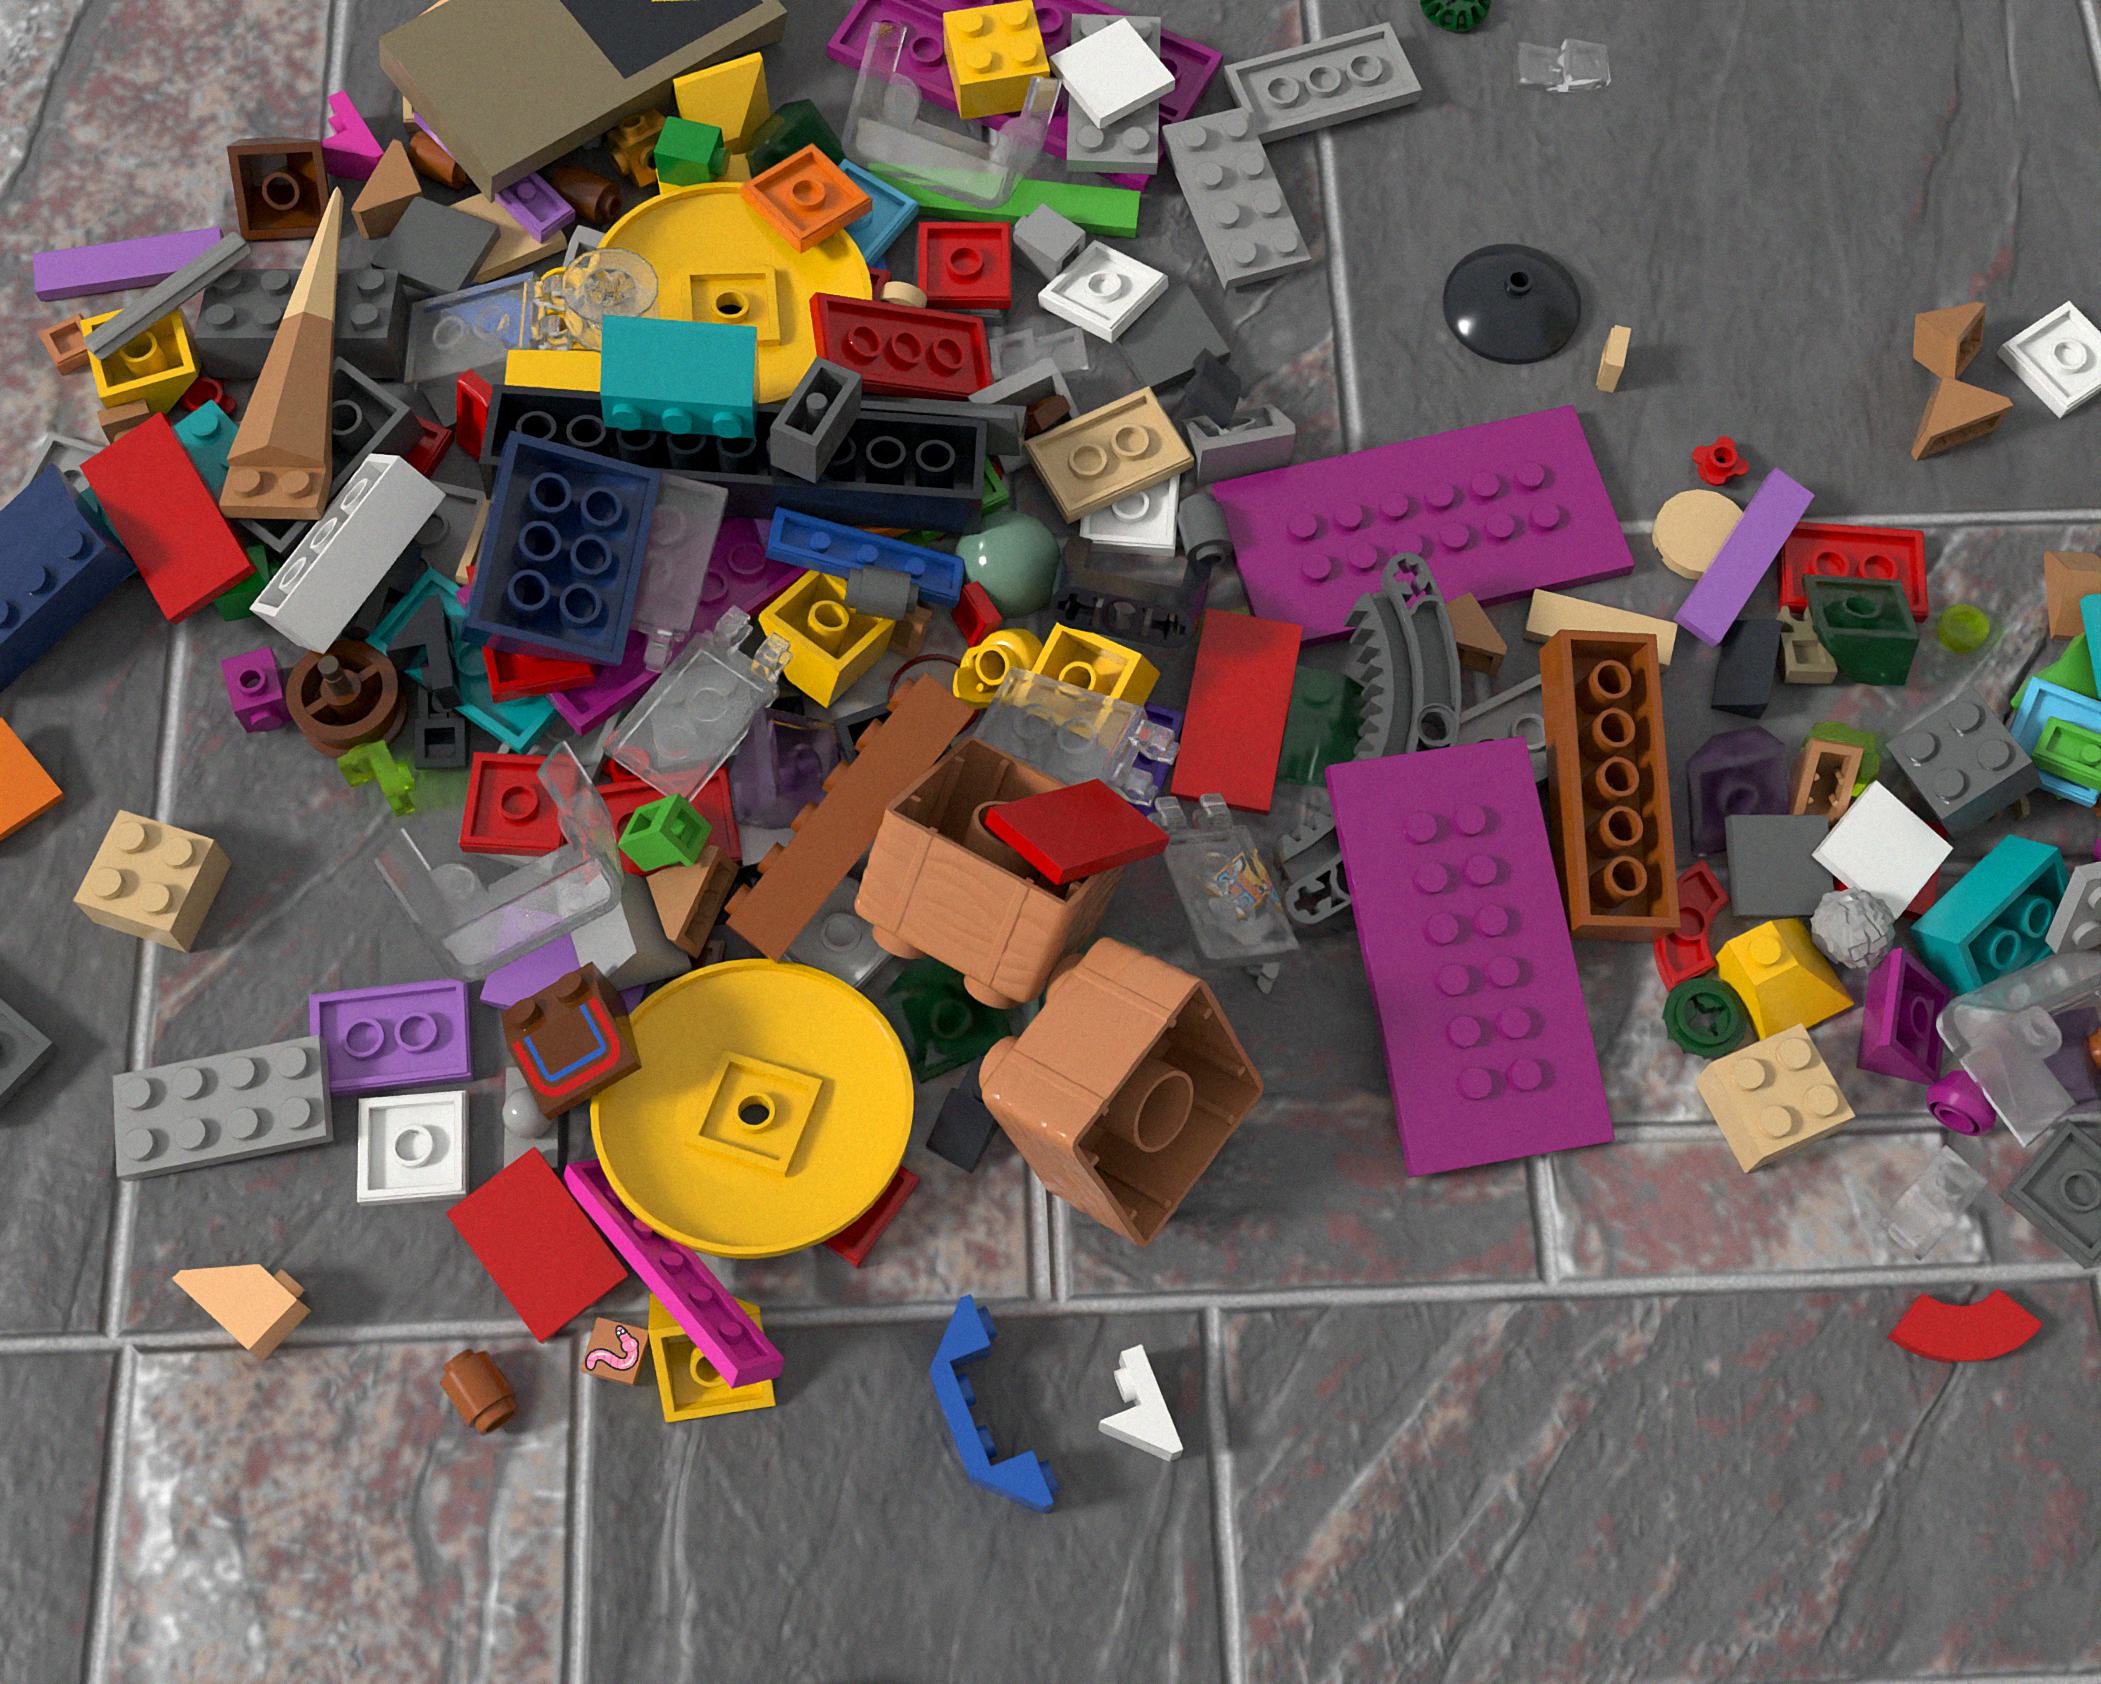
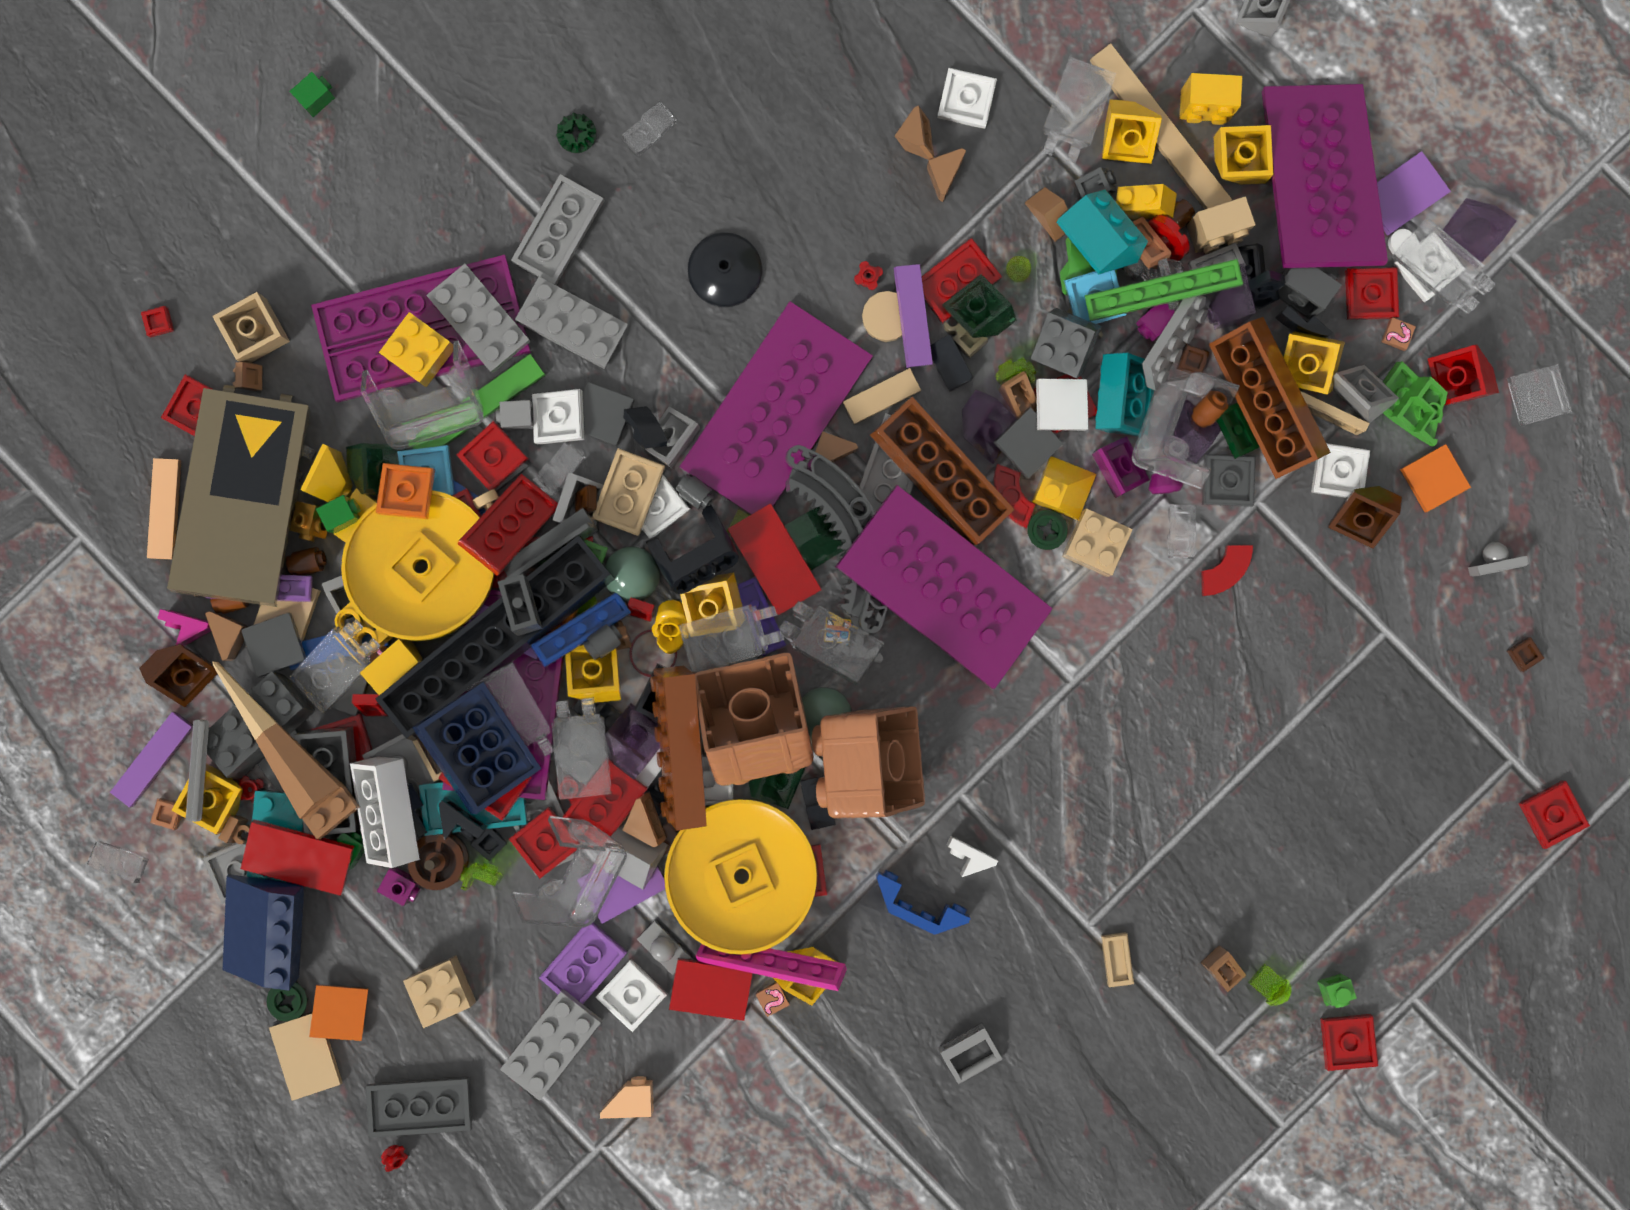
camera: 40 degrees left, 20 degrees up
(479, 1391) = (740, 1055): dark orange brick -> none
(571, 1040) = (656, 914): reddish brown slope -> none
(606, 284) = (378, 604): clear piece -> none
(664, 834) = (616, 811): bright green brick -> none
(679, 376) = (452, 637): teal slope -> none
(1076, 831) = (775, 687): red tile -> none
(1112, 73) = (473, 315): white tile -> none
(1613, 358) = (789, 264): tan tile -> none
(1853, 927) = (1075, 449): light grey piece -> none

